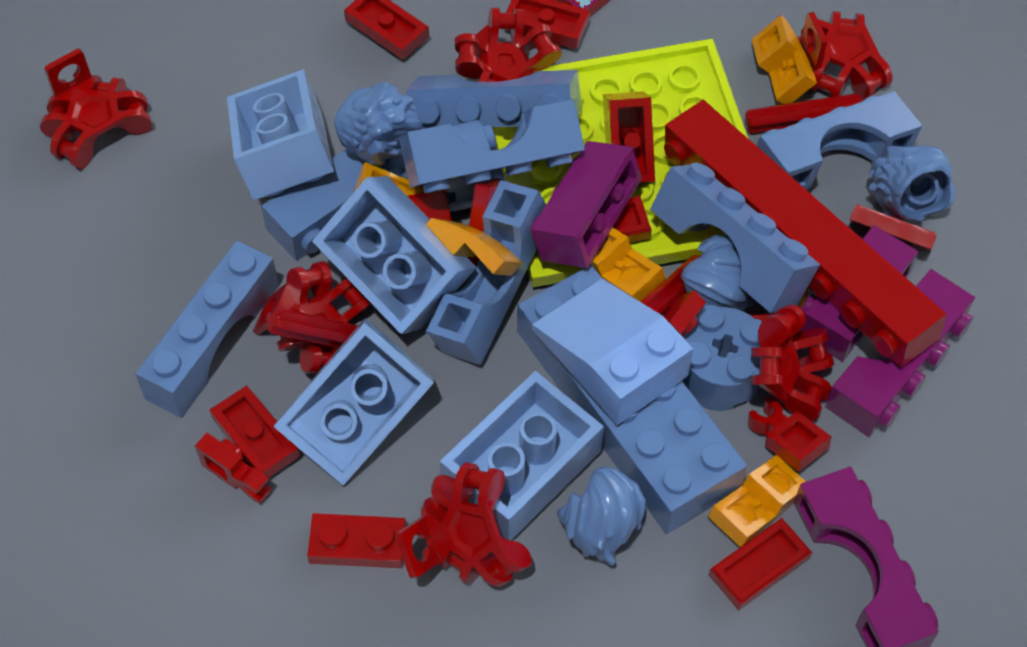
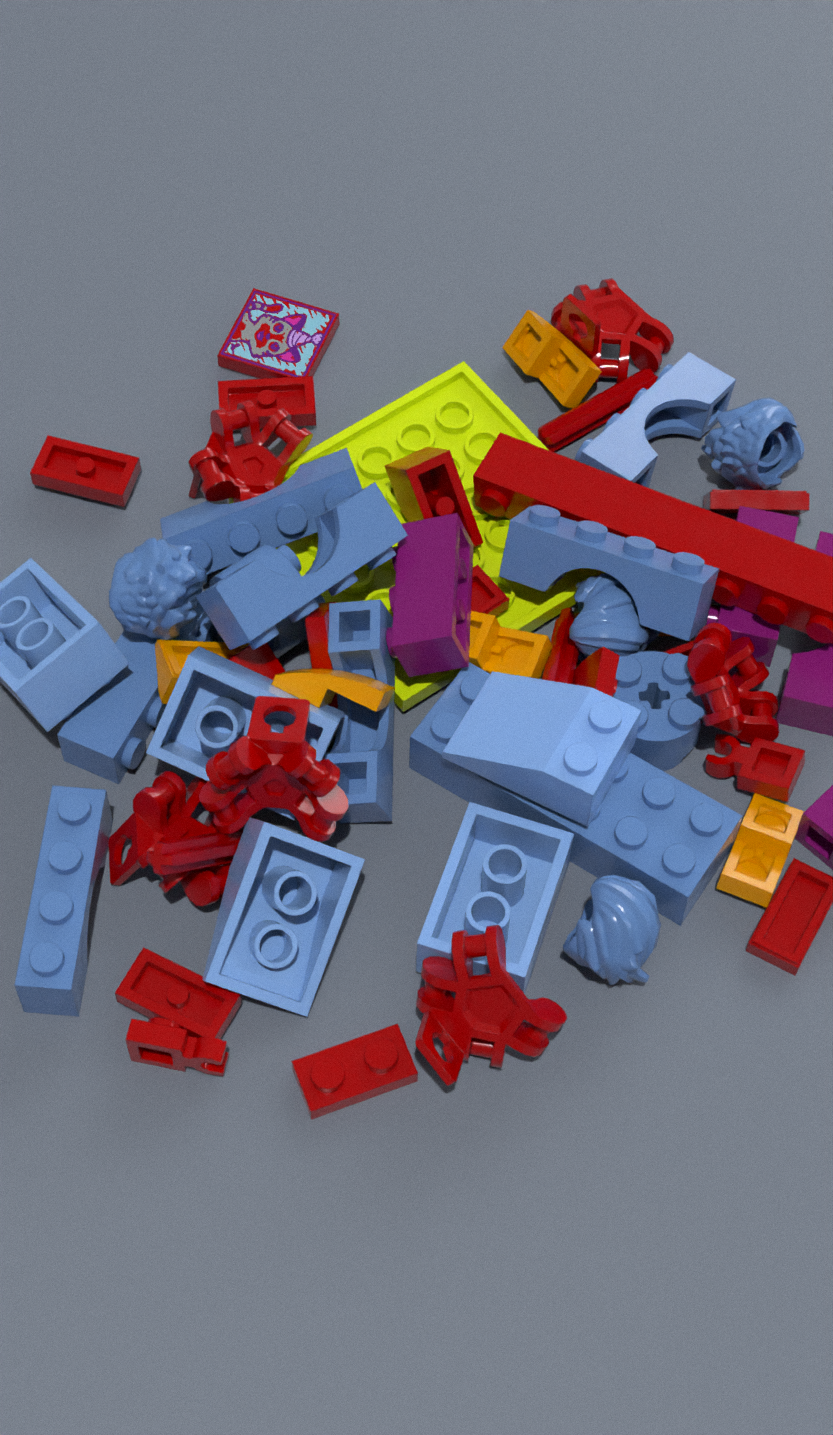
camera: 25 degrees left, 0 degrees up
(393, 291) = (276, 774): none -> red piece

